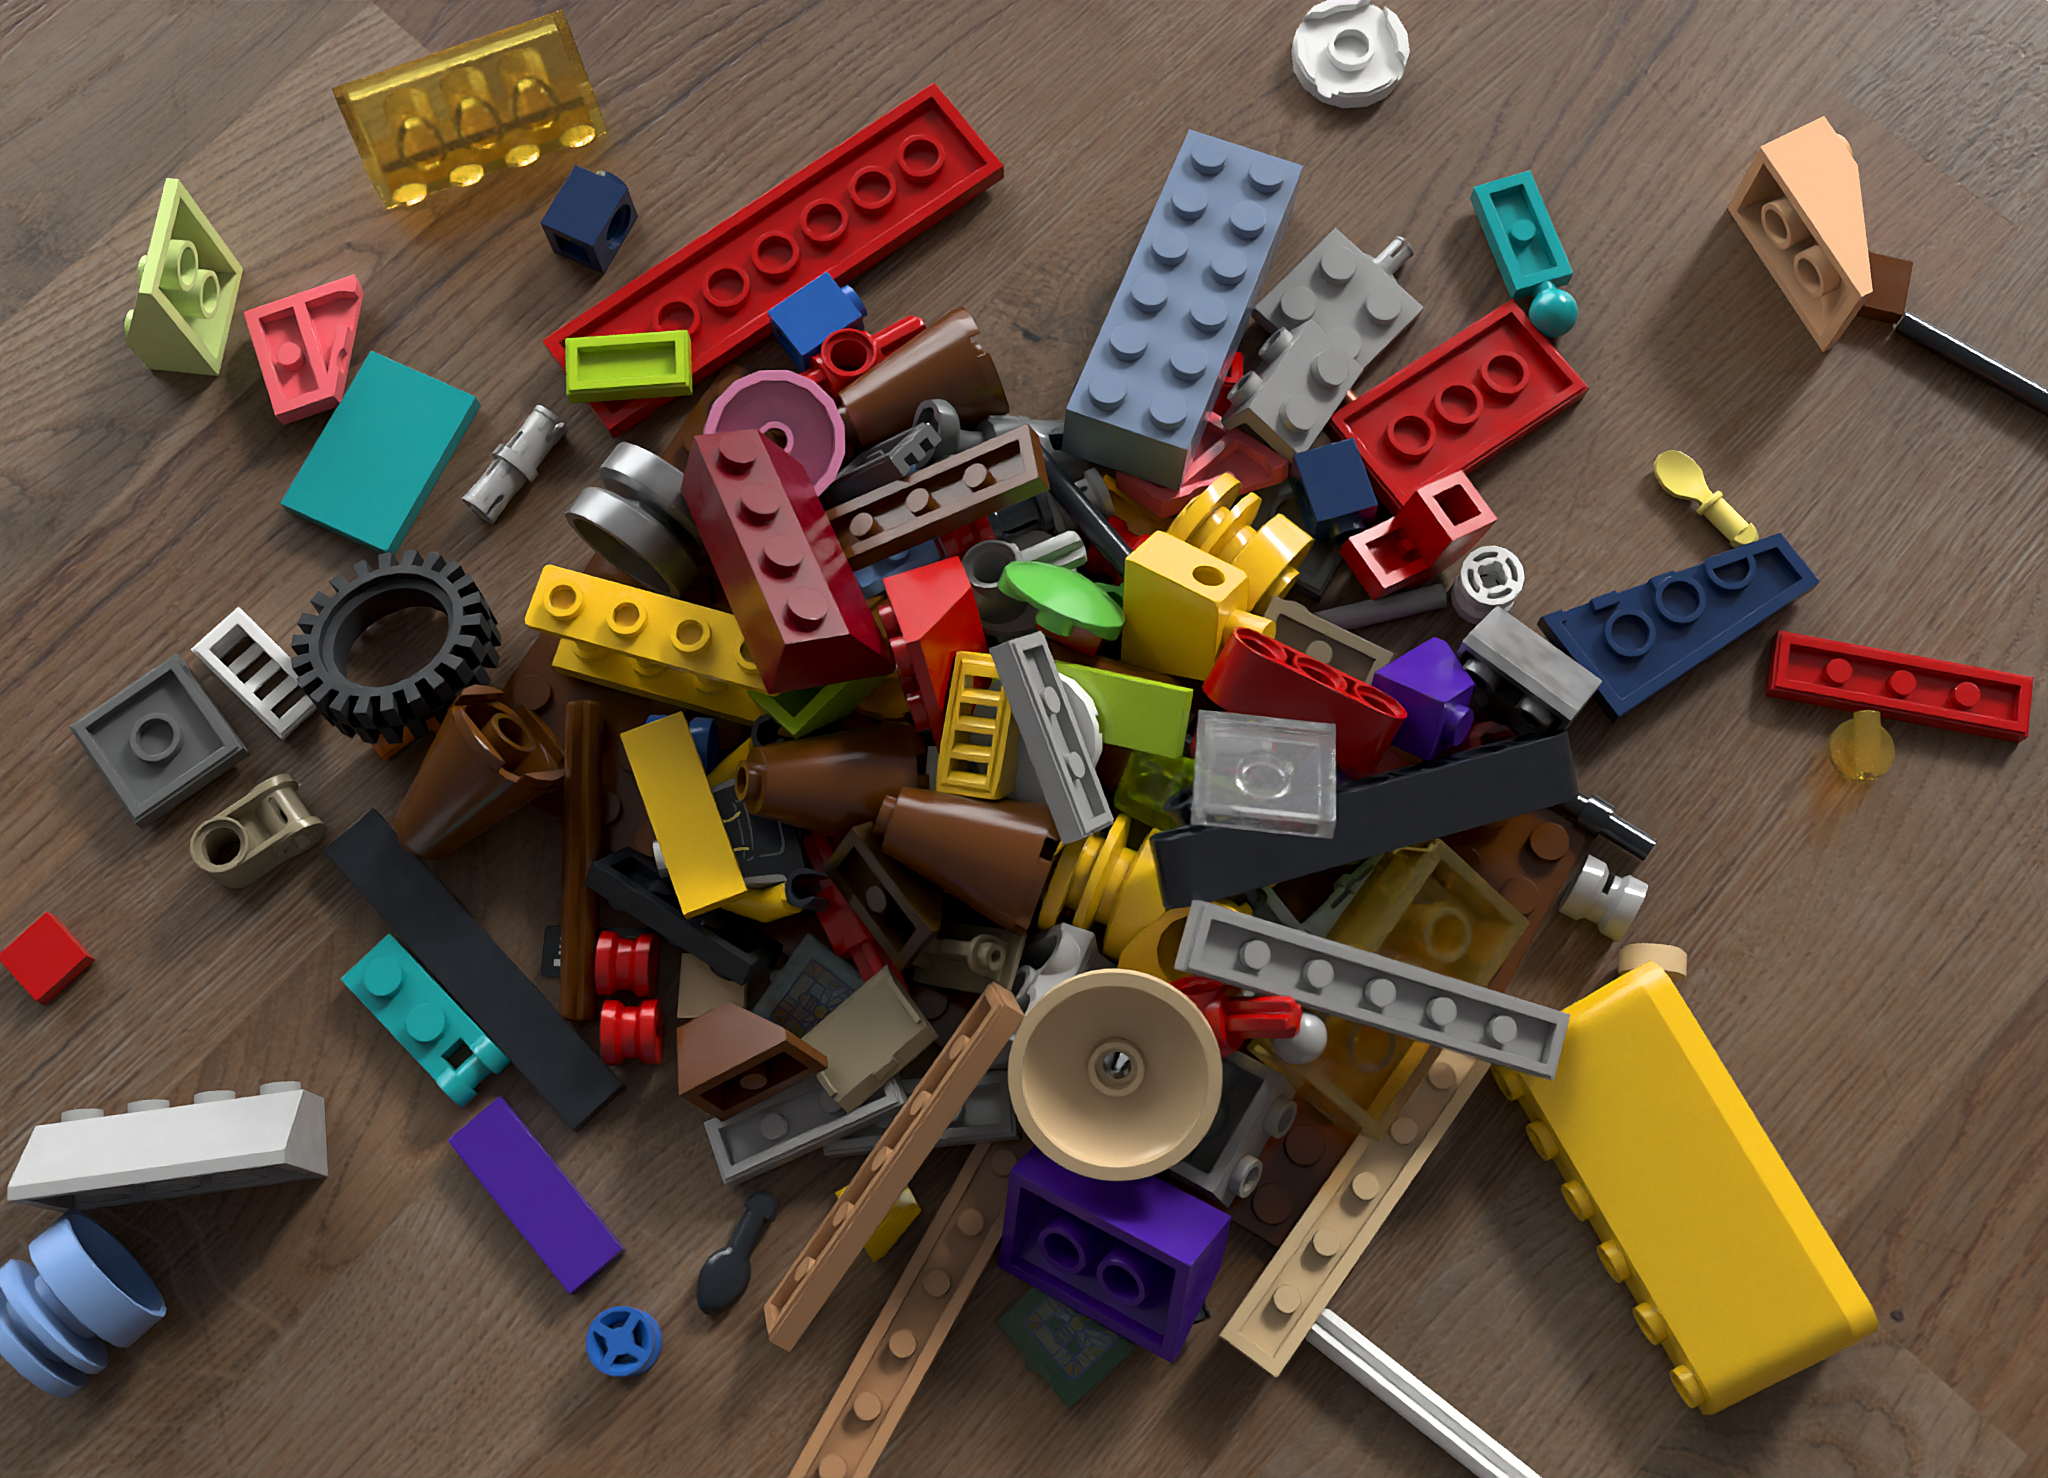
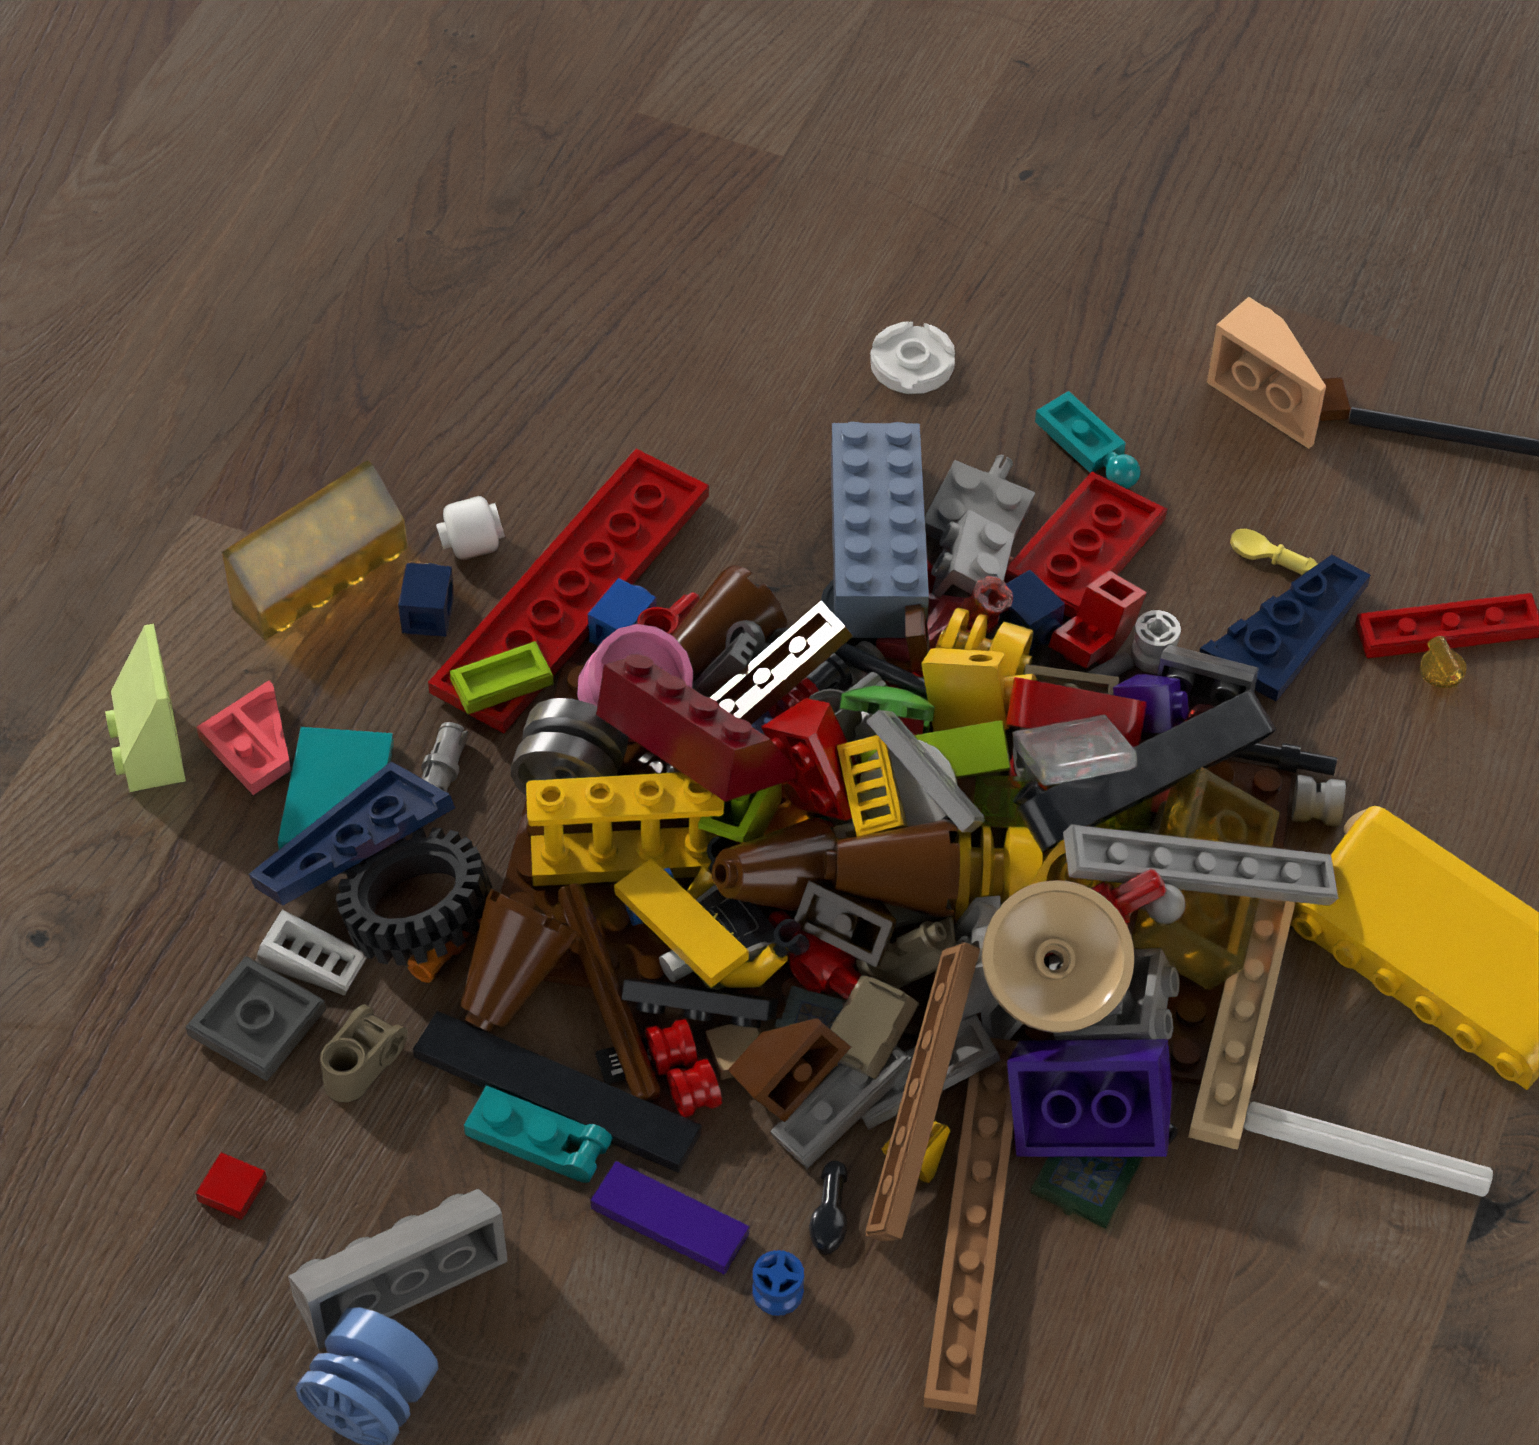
camera: 25 degrees left, 20 degrees down
(366, 527) = (357, 827): none -> dark blue wing
(682, 134) = (470, 528): none -> white head
(1157, 494) = (916, 635): none -> reddish brown tile
(1289, 472) = (993, 605): none -> clear red bush

